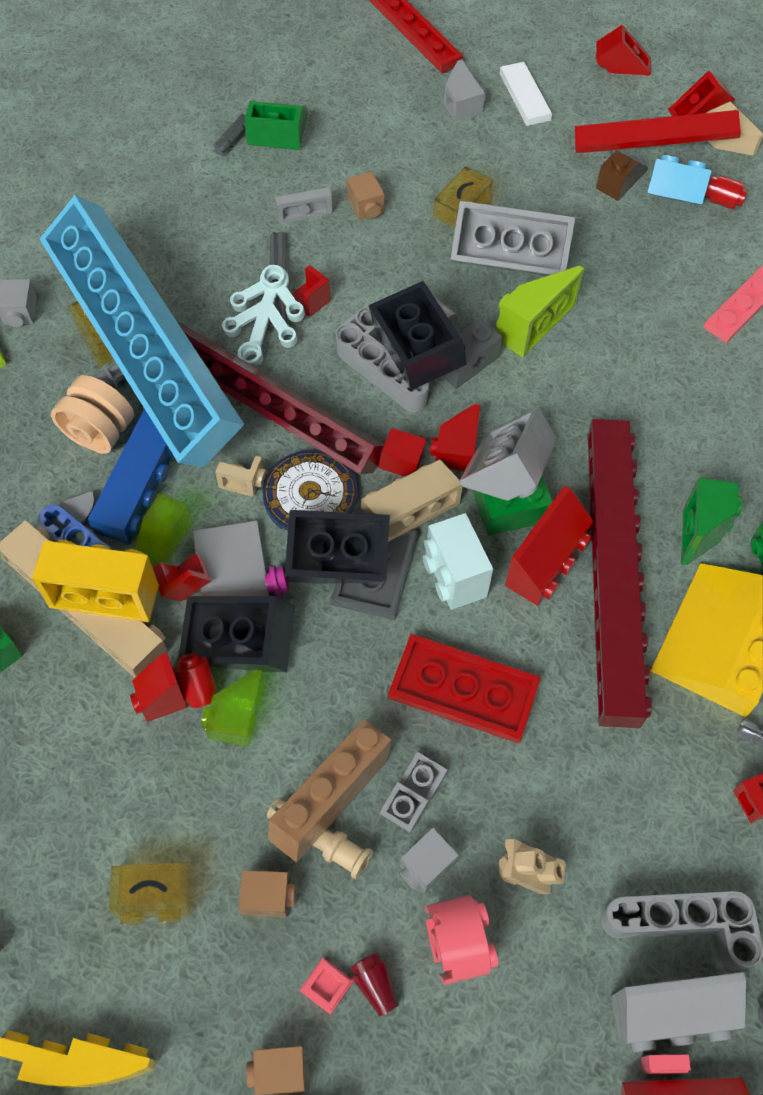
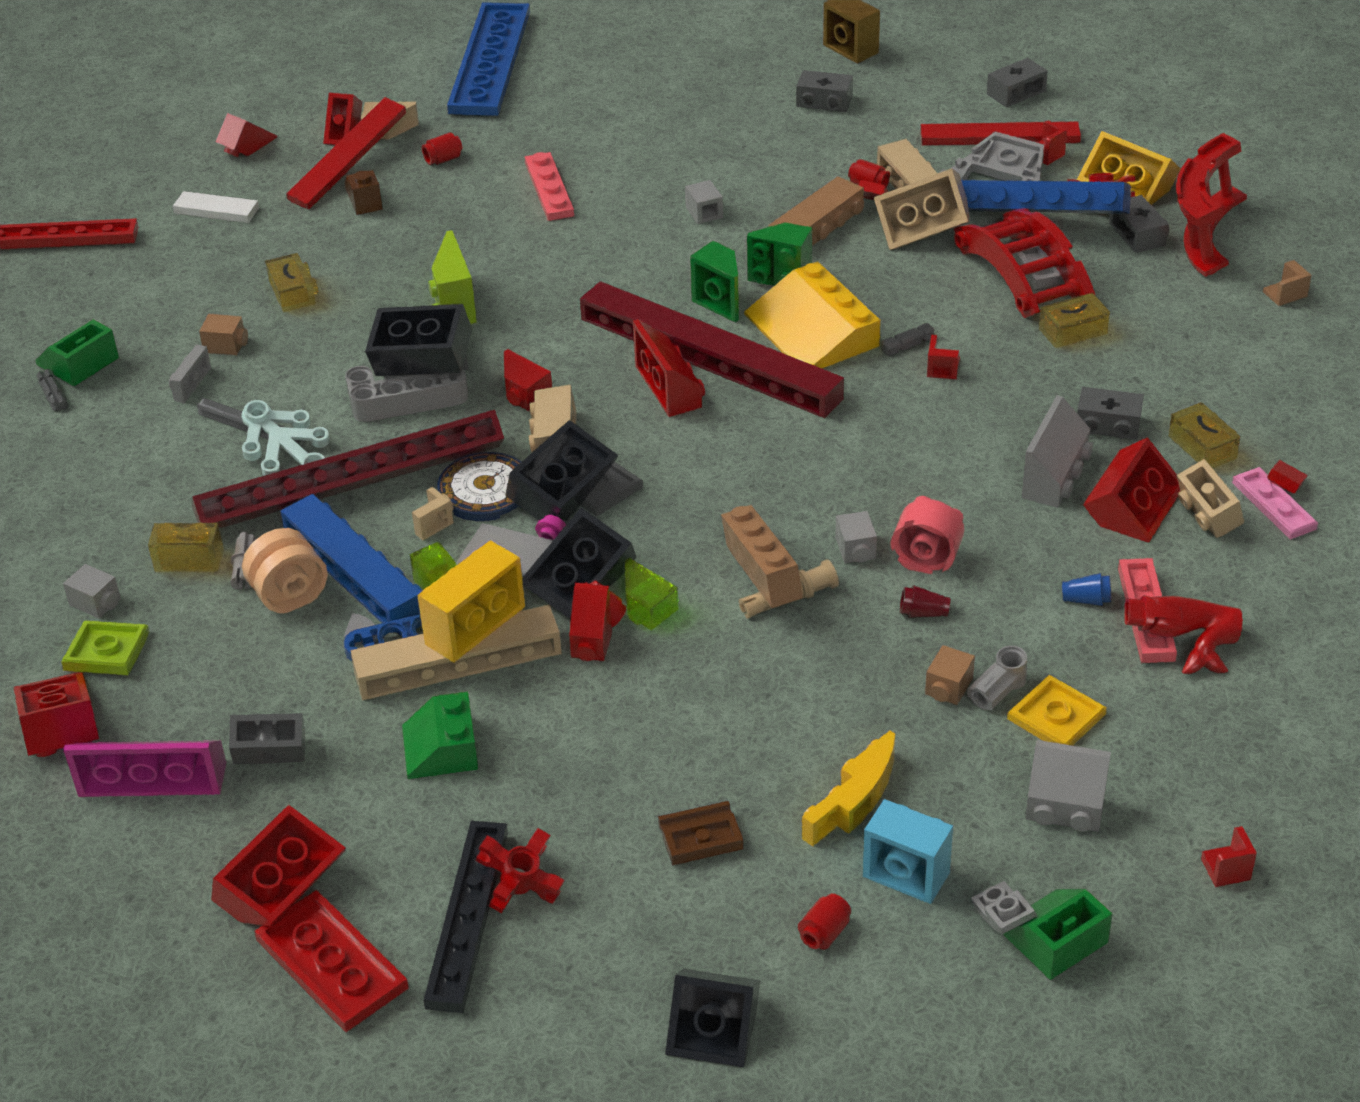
camera: 55 degrees left, 20 degrees down
(141, 333) = (241, 487): medium azure brick -> none
(150, 891) = (756, 697): clear yellow brick -> none
(266, 894) = (810, 634): medium nougat brick -> none
(314, 292) = (287, 397): red panel -> none
(326, 986) = (905, 634): coral tile -> none
(401, 452) = (510, 410): red panel -> none
(413, 792) = (794, 529): light grey slope -> none
(457, 561) = (635, 416): light aqua brick -> none
(463, 94) = (176, 236): light grey slope -> none
(464, 688) = (735, 467): red plate -> none
(504, 515) = (604, 374): green slope -> none
(511, 239) = (370, 266): light grey brick -> none
(511, 458) = (578, 339): light grey slope -> none
(530, 867) = (904, 481): tan hips -> none
(665, 1064) = (1085, 482): coral tile -> none
(679, 180) = (406, 163): medium azure slope -> none
(679, 923) = (1008, 413): light grey beam -> none

